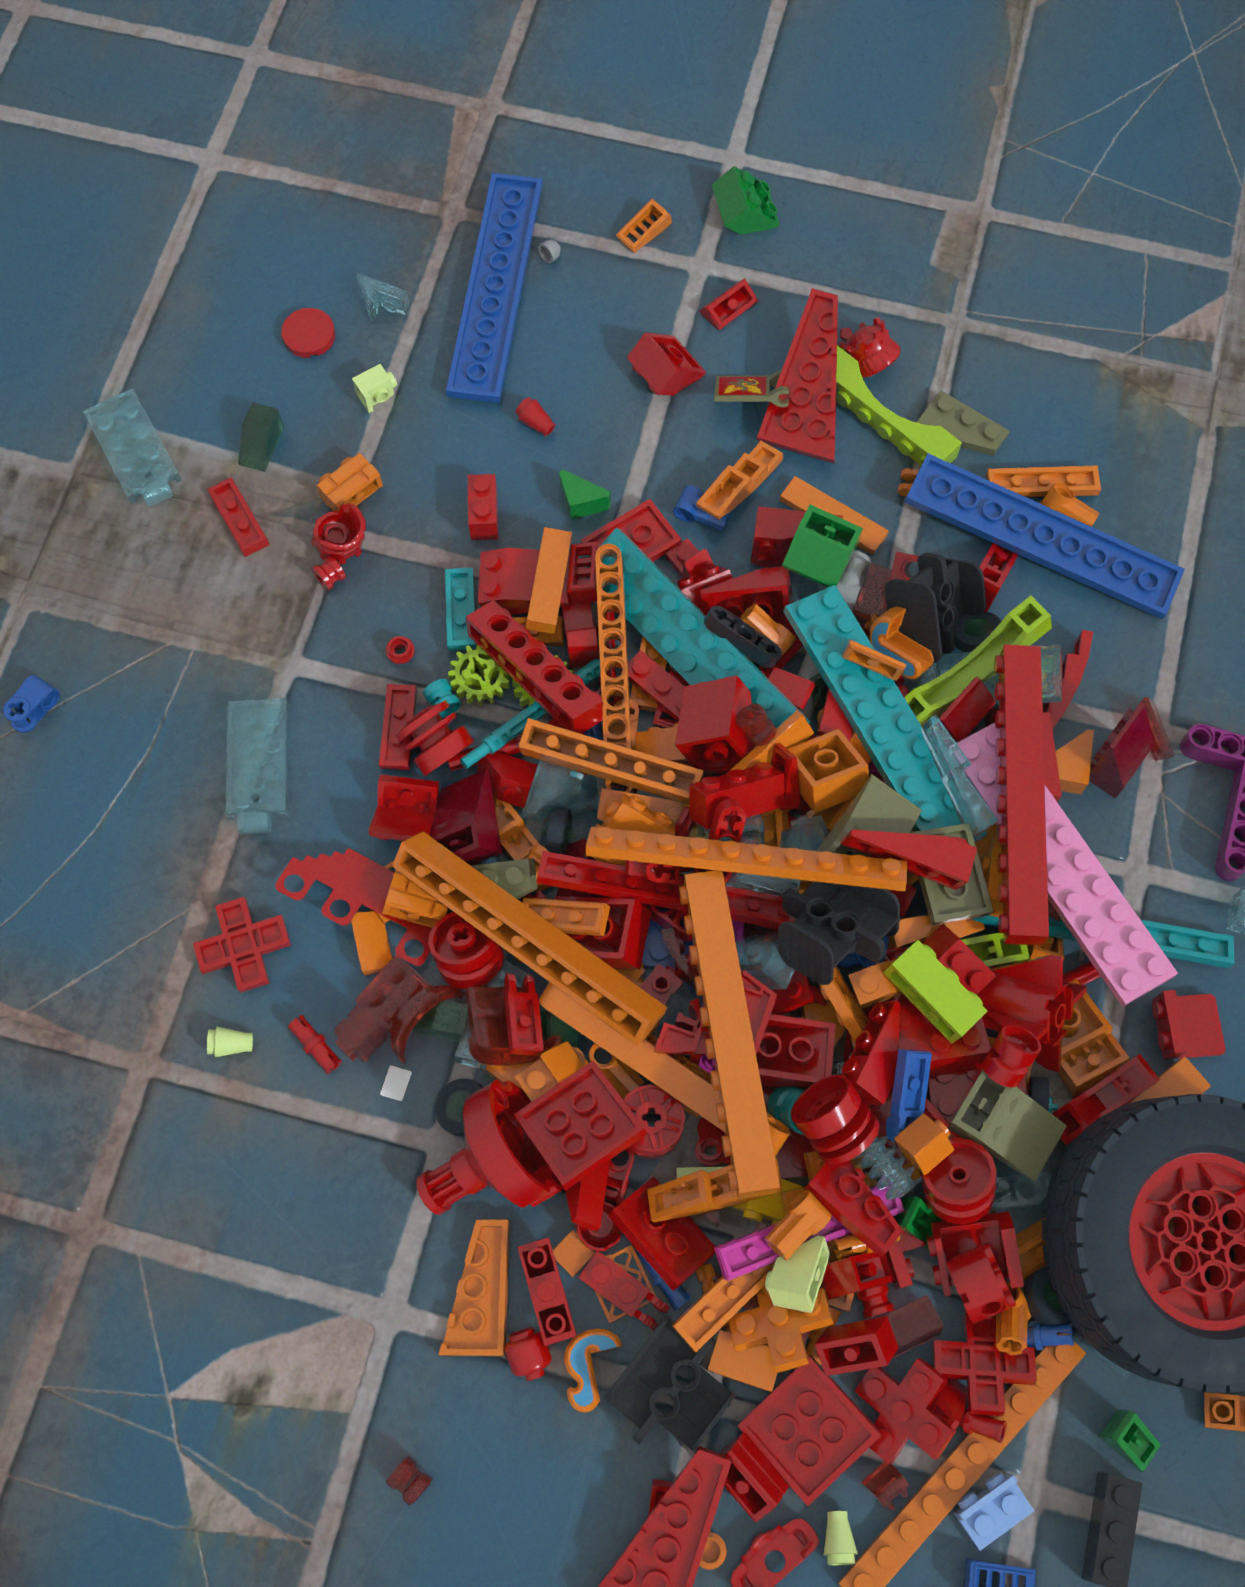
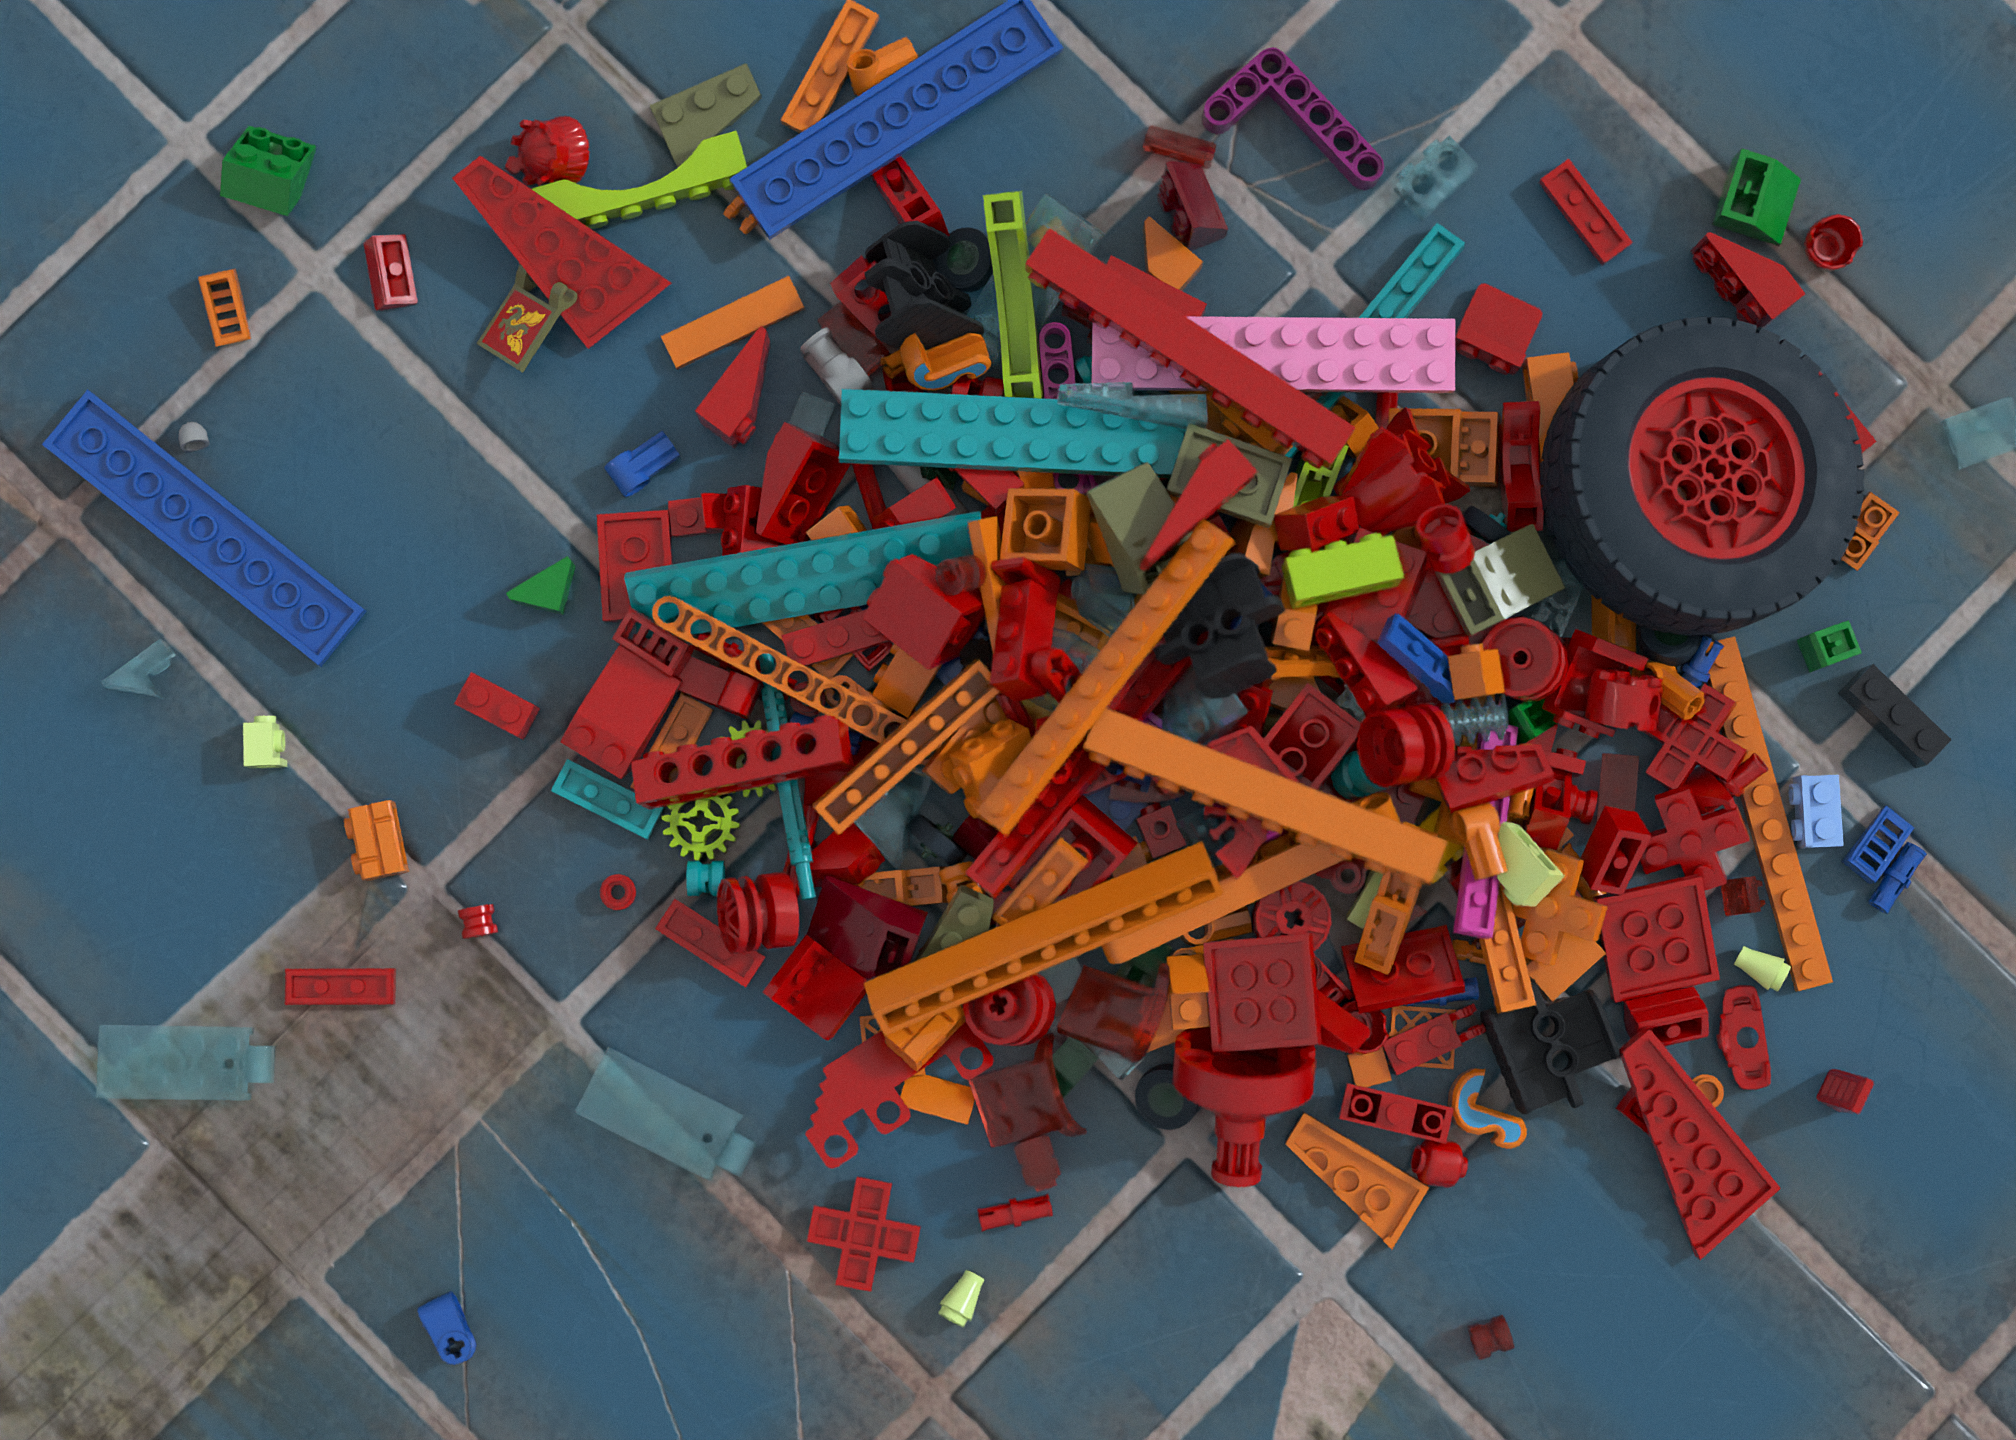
camera: 65 degrees left, 15 degrees up
(259, 436) = (253, 911): clear green slope -> none
(308, 332) = (136, 781): red tile -> none
(340, 533) = (437, 884): red hair -> none
(395, 1083) = (1099, 1150): white sticker -> none
(523, 1017) = (1119, 988): red hinge -> none
(534, 416) = (412, 581): red cone -> none
(549, 580) = (647, 688): orange slope -> none
(664, 364) = (431, 393): red slope -> none
(740, 480) = (635, 402): orange slope -> none
(755, 646) = (858, 503): black beam -> none
(768, 627) = (848, 487): orange piece -> none
(822, 547) = (793, 376): green slope -> none
(873, 660) = (954, 403): orange slope -> none
(967, 710) = (1057, 337): red slope -> none
(1072, 672) = (1071, 193): red slope -> none

